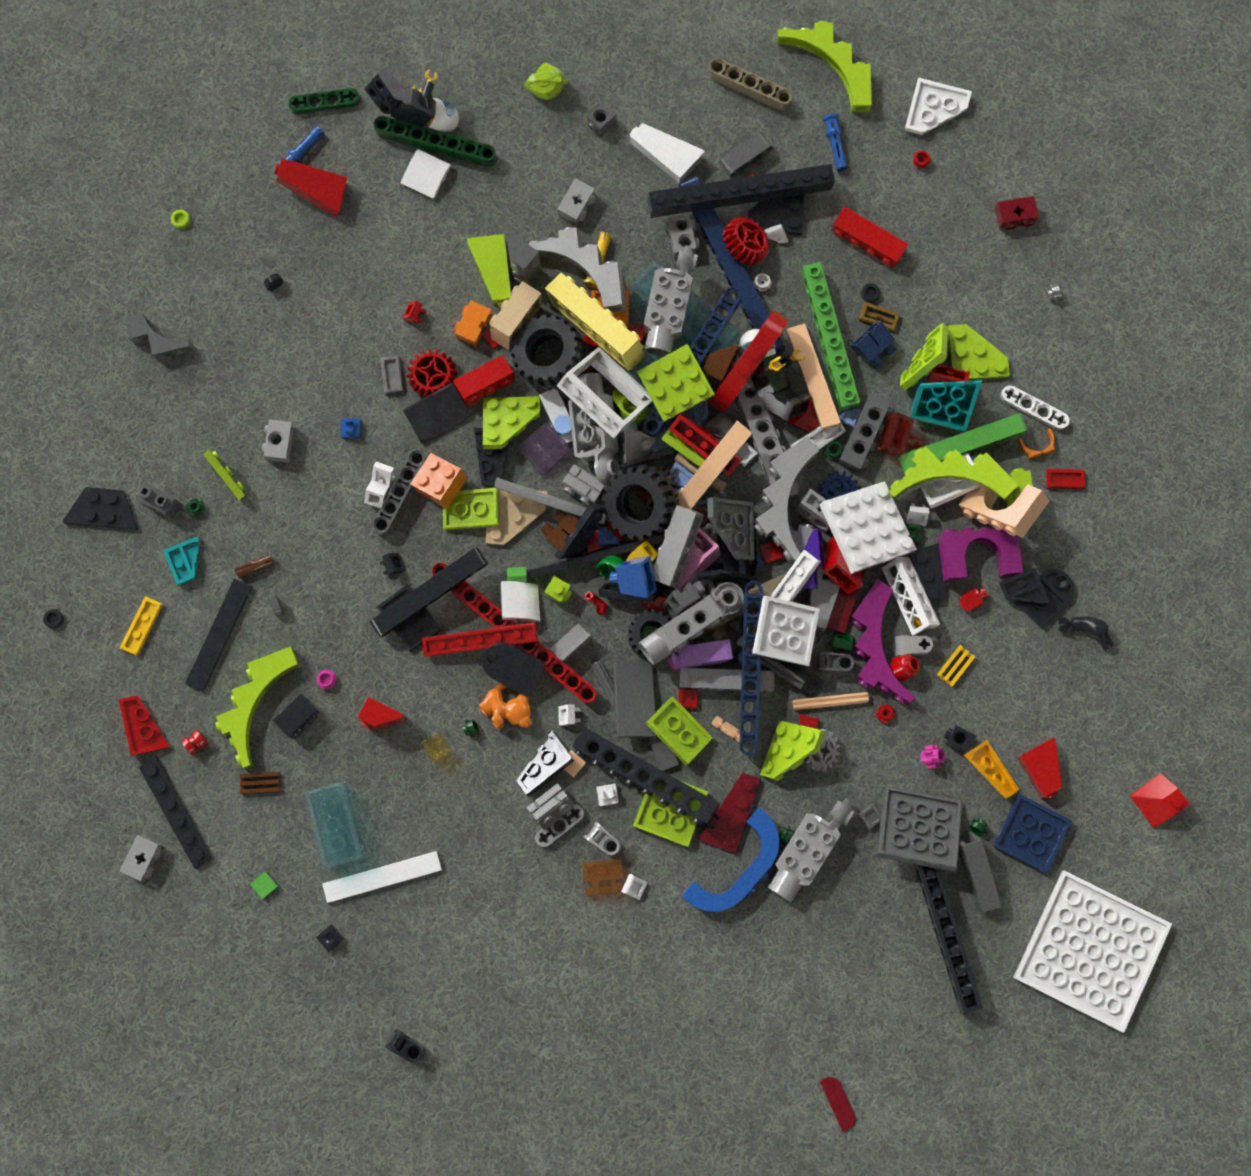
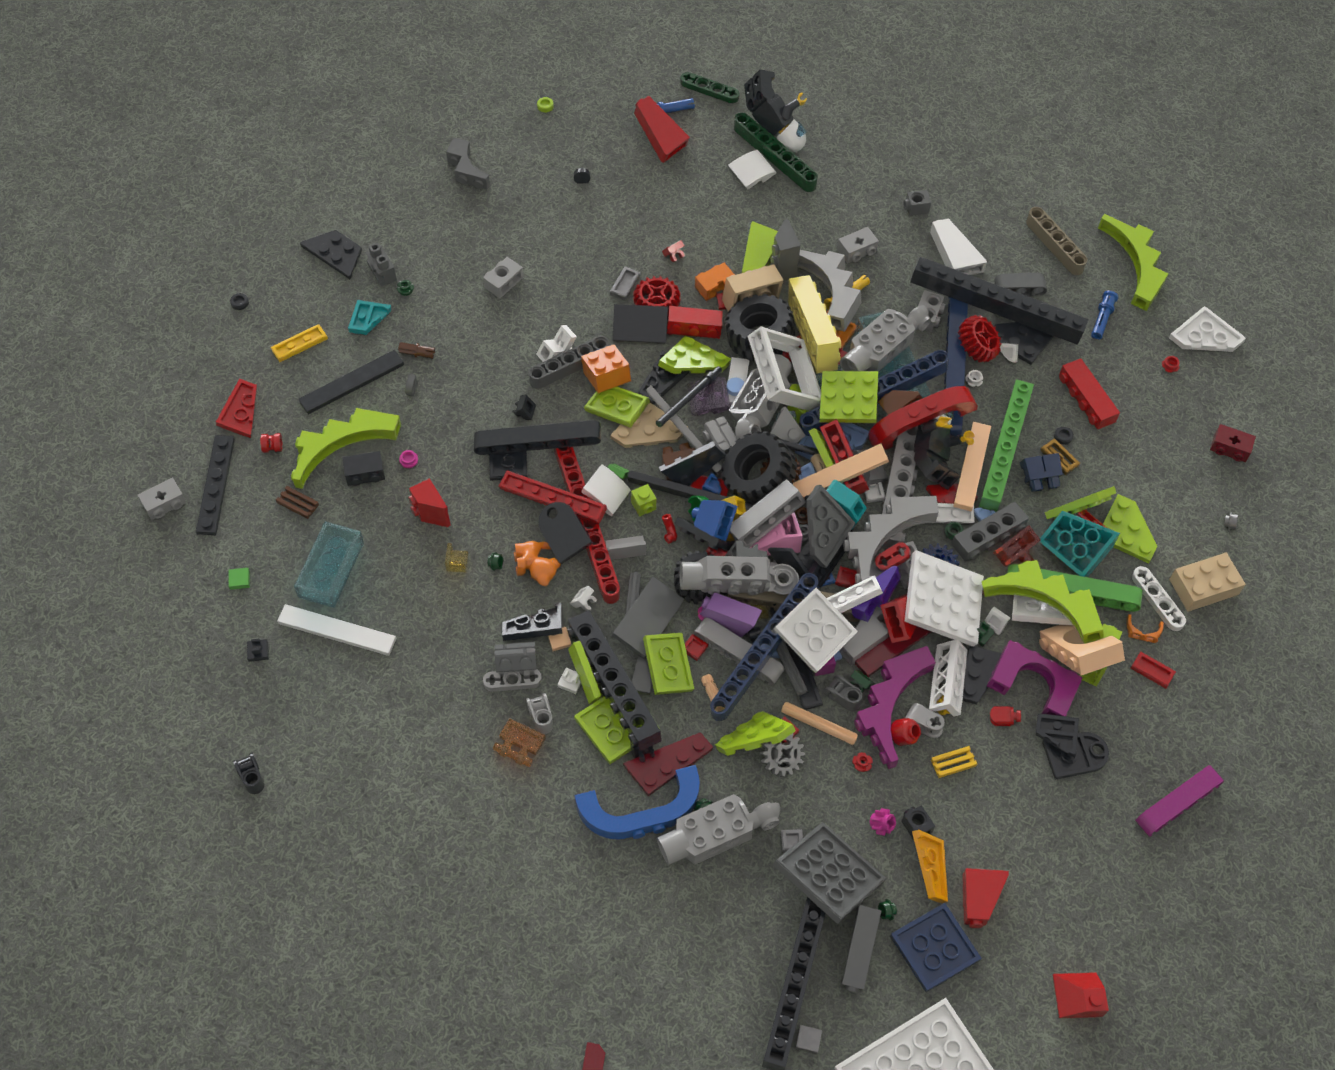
camera: 30 degrees right, 20 degrees down
(225, 473) = (445, 273): lime wing -> none
(350, 428) = (565, 300): blue tile -> none
(536, 435) = (708, 379): none -> black bar
(546, 82) = (890, 155): lime helmet -> none
(617, 784) = (585, 672): none -> lime tile
(634, 886) = (539, 766): white tile -> none
(735, 489) = (848, 500): none -> teal slope
(808, 519) = (890, 553): none -> red beam
(981, 968) = (808, 1039): none -> flat silver tile
(1066, 368) = (1207, 582): none -> tan brick
(1091, 625) = (1104, 800): black arm -> none
(1148, 588) = (1178, 800): none -> magenta beam

